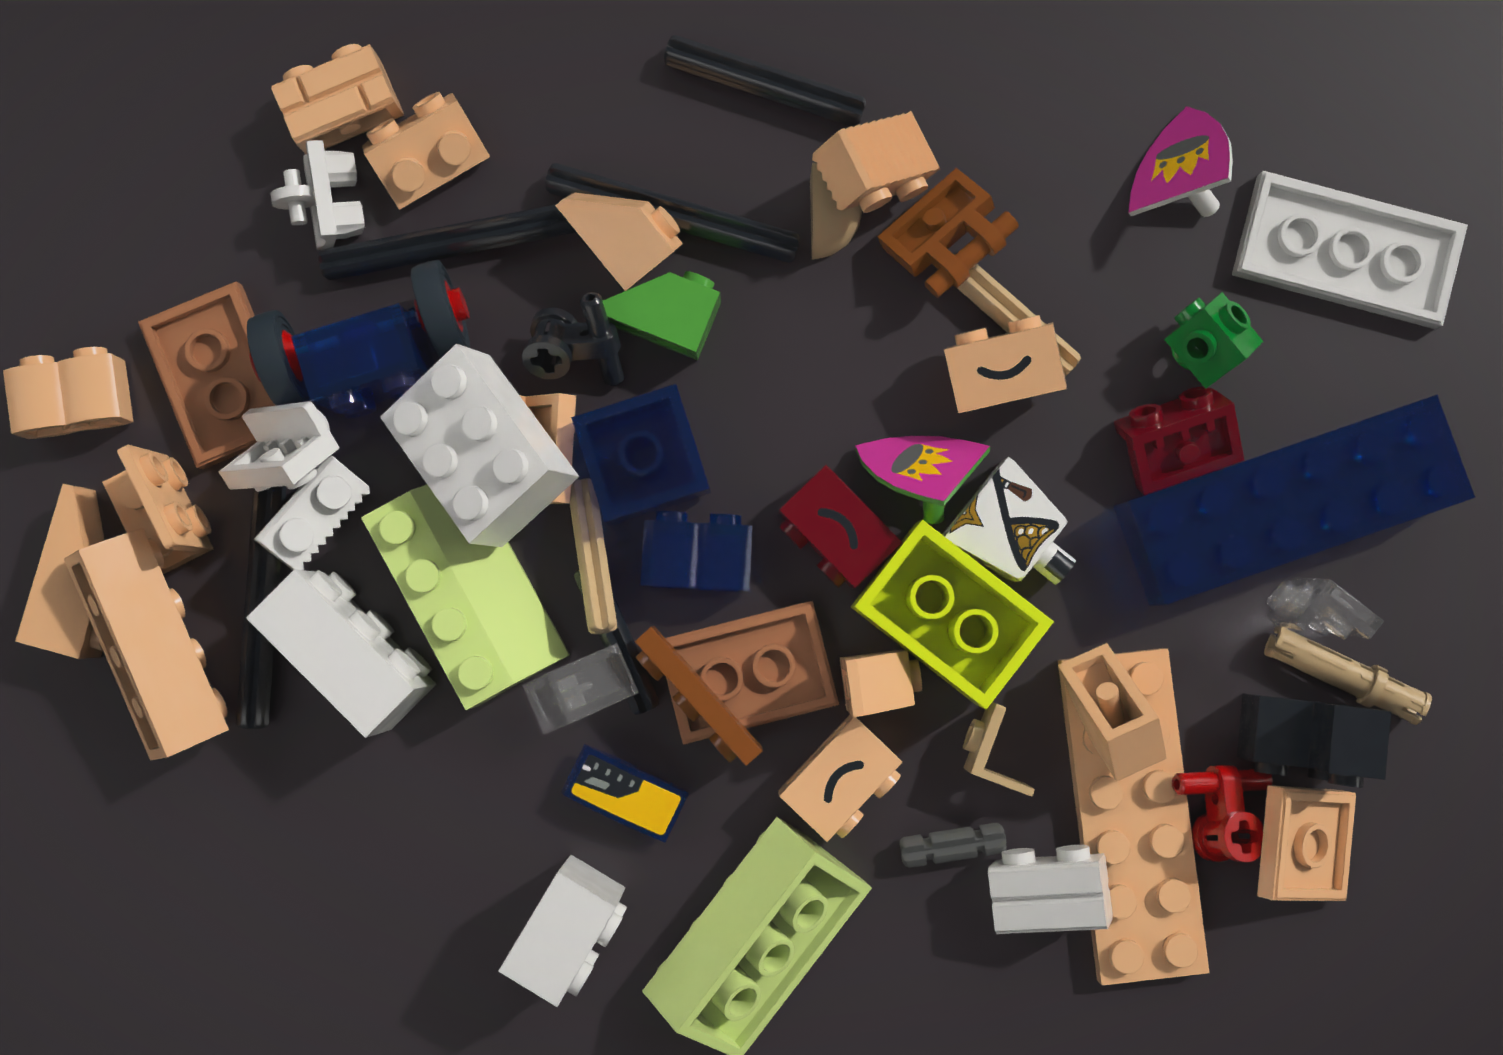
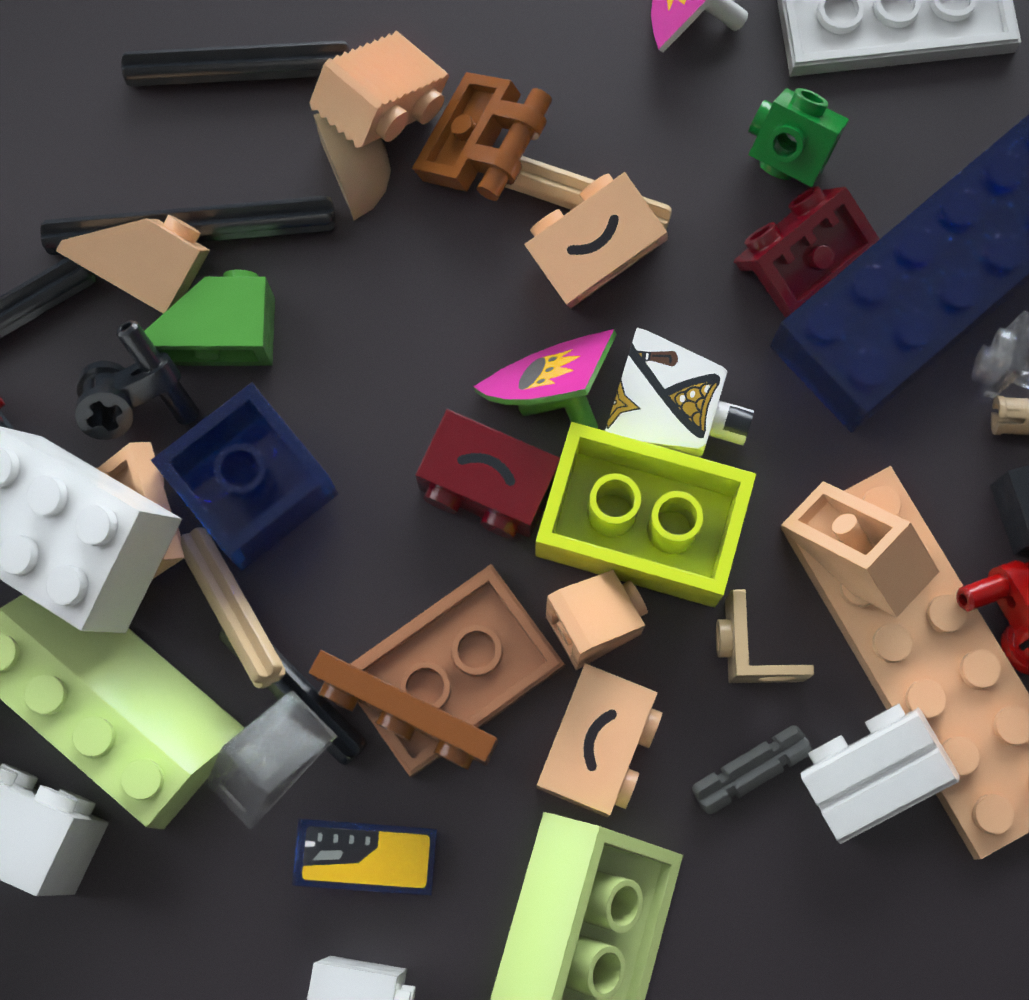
camera: 20 degrees left, 10 degrees down
(696, 554) = (345, 561): clear blue brick -> none

